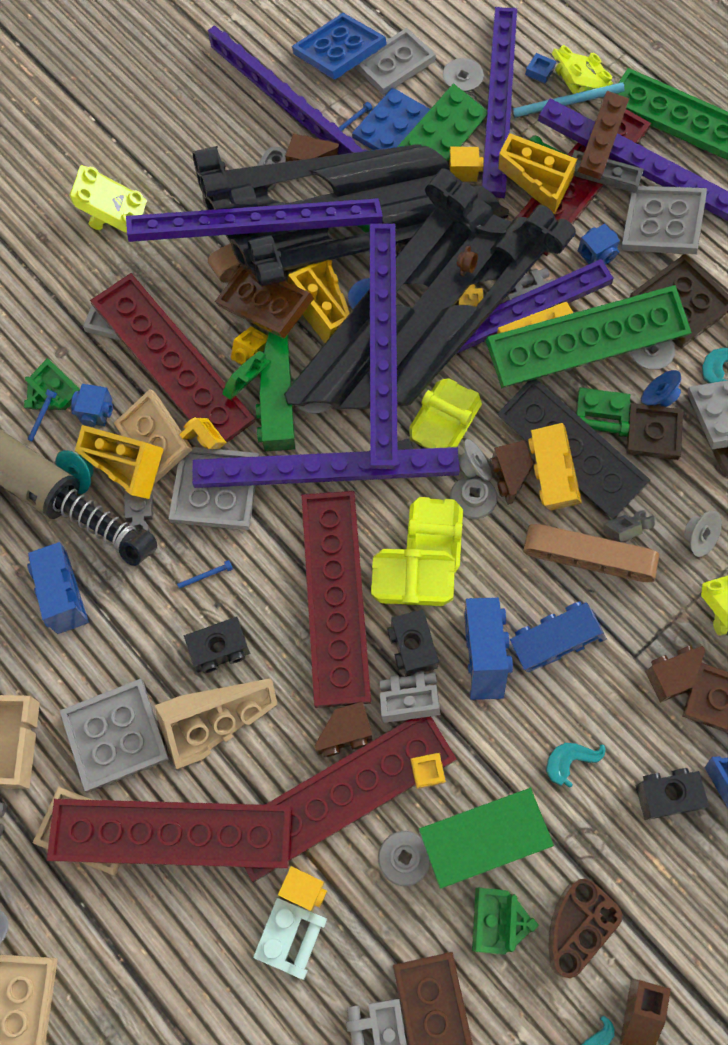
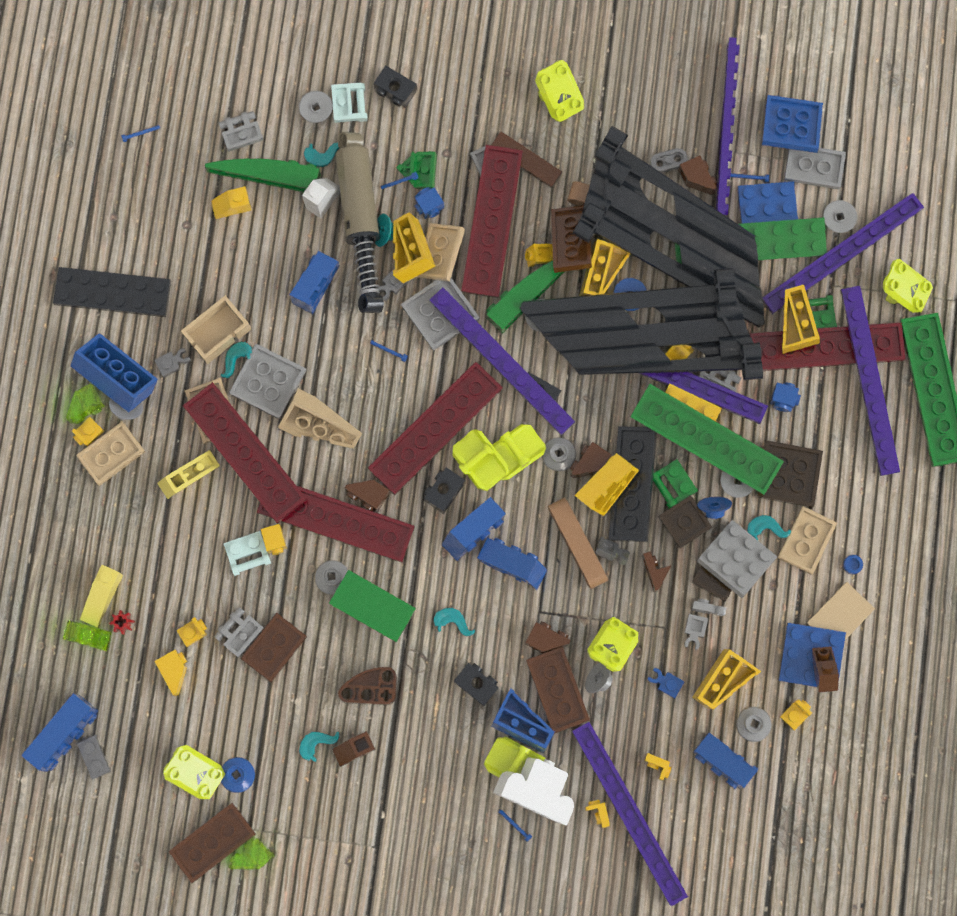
camera: 50 degrees right, 10 degrees up
(46, 744) = (240, 349): none -> teal piece
(132, 928) = (188, 474): none -> light yellow slope
(156, 281) = (530, 161): none -> reddish brown tile
(201, 642) = (348, 383): black brick -> none
(207, 433) = (464, 279): yellow bracket -> none
(245, 374) = (517, 270): green slope -> none
(253, 220) = (609, 193): dark purple plate -> none
(383, 348) = (597, 329): dark purple plate -> none
(411, 702) = (409, 514): light grey plate -> none
(428, 771) = (382, 551): yellow tile -> none
(444, 415) = (592, 398): neon yellow shield -> none
(465, 163) = (773, 272): yellow brick -> none
(467, 261) = (692, 331): reddish brown plate -> none
(474, 462) = (577, 437): light grey piece -> none
(499, 921) = (340, 647): green slope -> none
(540, 68) = (888, 256): blue plate -> none
(569, 99) = (878, 295): medium azure axle -> none
(603, 135) = (859, 339): reddish brown plate -> none
(615, 174) = (840, 359): dark grey tile -> none
(664, 220) = (836, 421): light grey plate -> none
(690, 504) = (655, 575): none -> reddish brown slope
(703, 532) = (641, 595): light grey piece -> none

